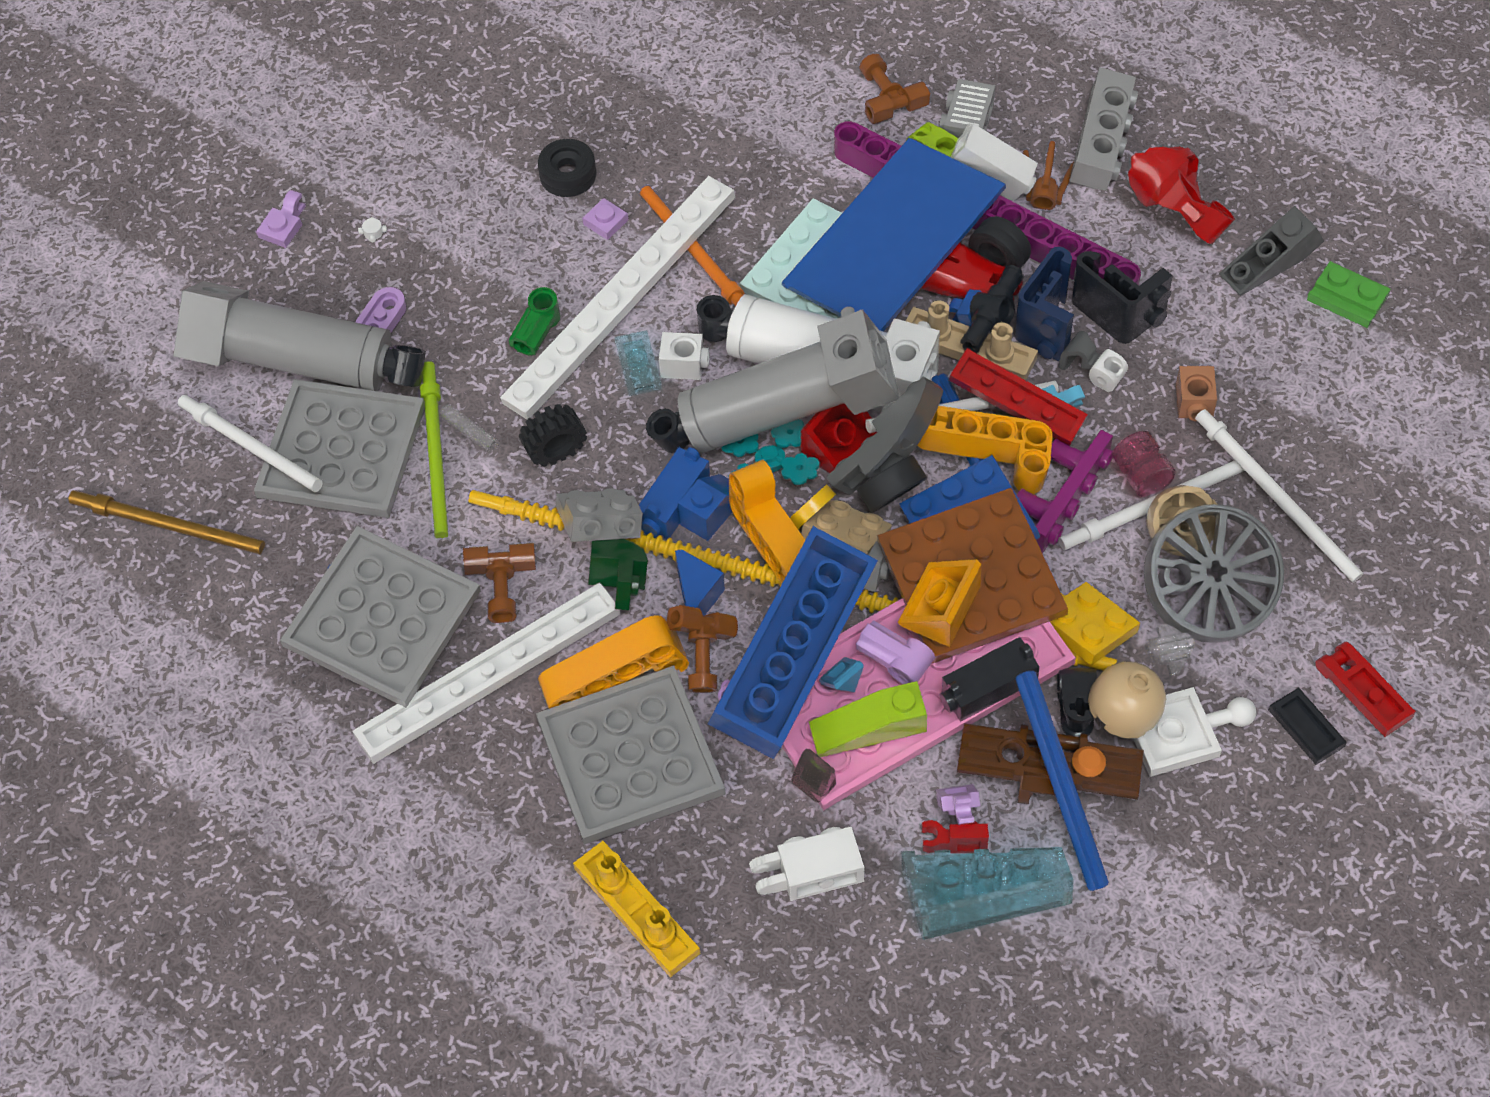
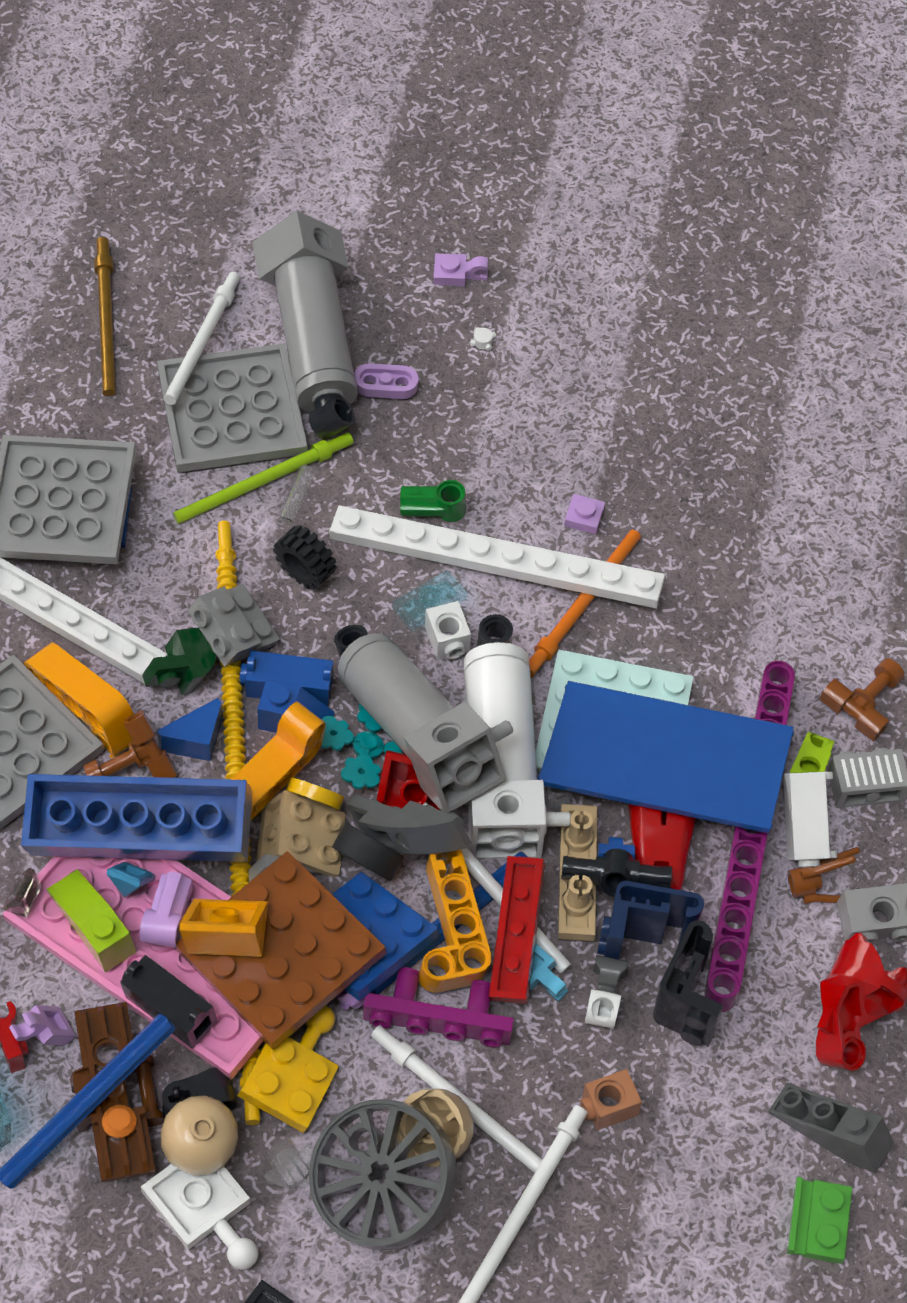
camera: 60 degrees right, 0 degrees up
(500, 568) = (156, 572): dark orange bar -> none
(567, 152) = (626, 443): black tyre -> none
(1001, 242) = (703, 857): black tyre -> none
(1144, 466) = (502, 1069): clear pink wheel -> none

